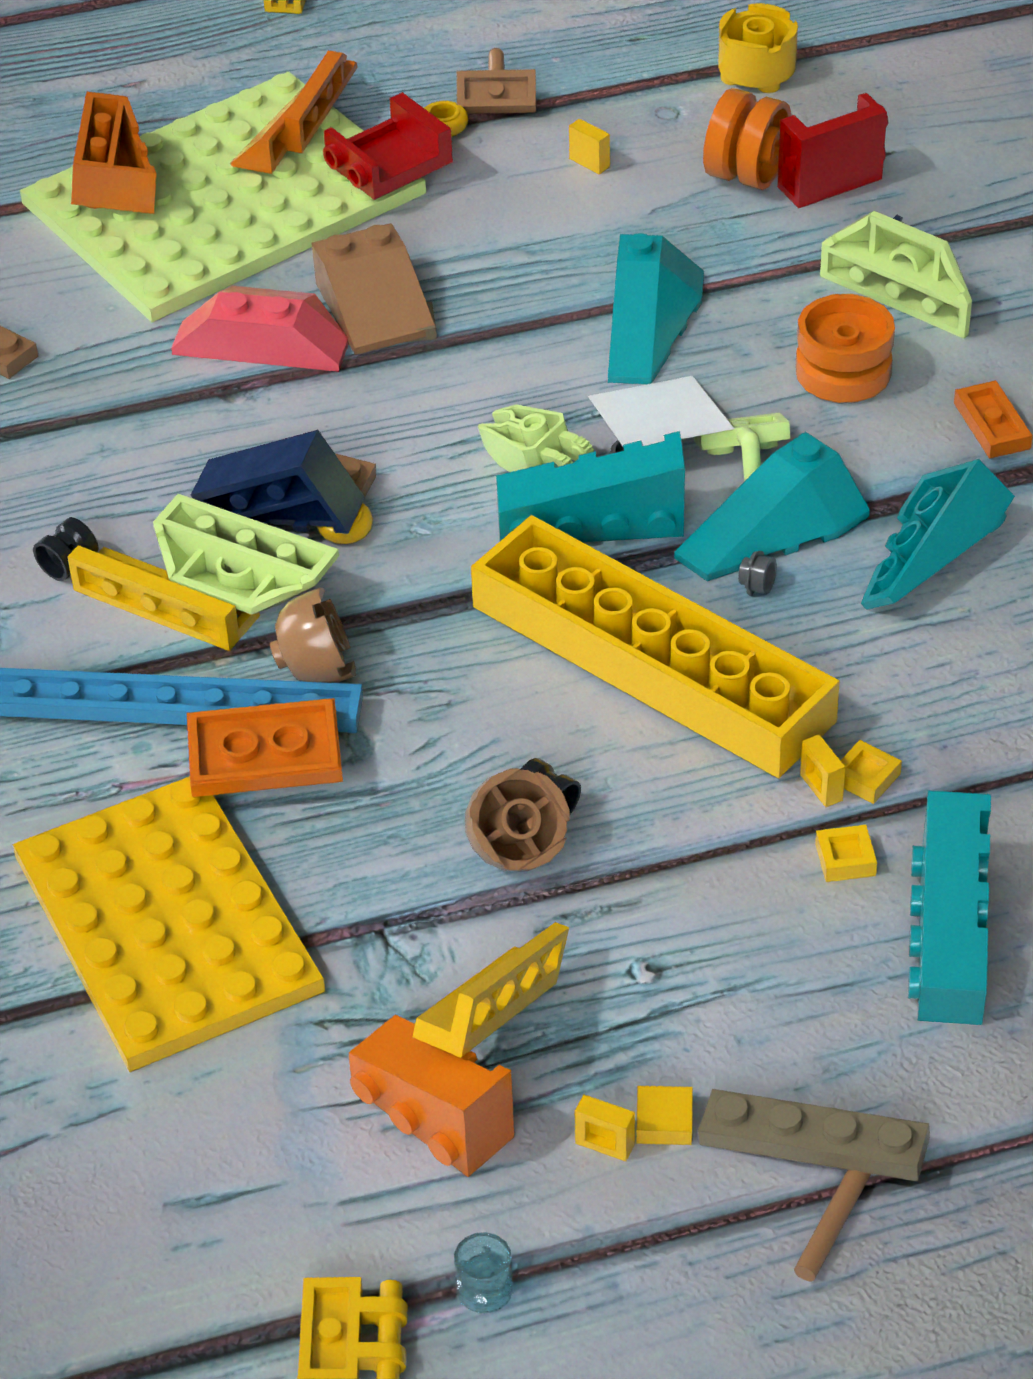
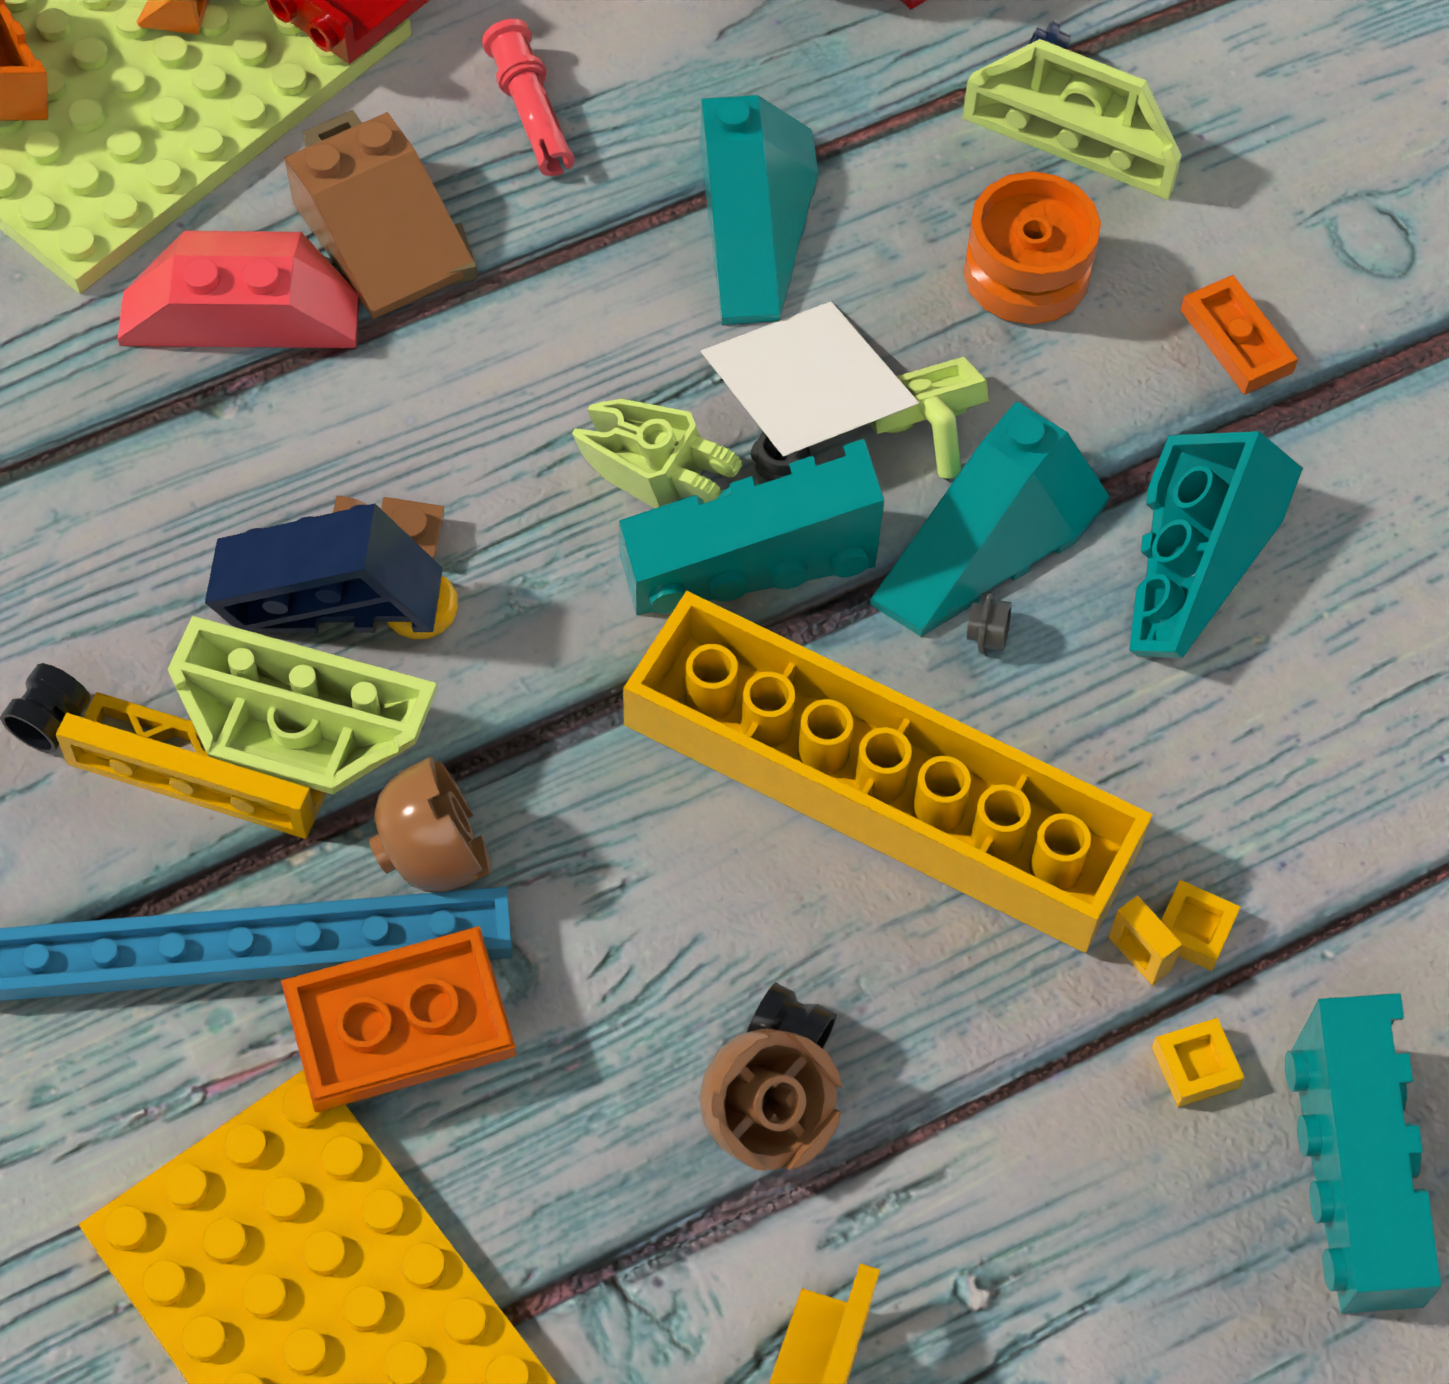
camera: 15 degrees left, 15 degrees up
(498, 220) = (522, 78): none -> coral pin

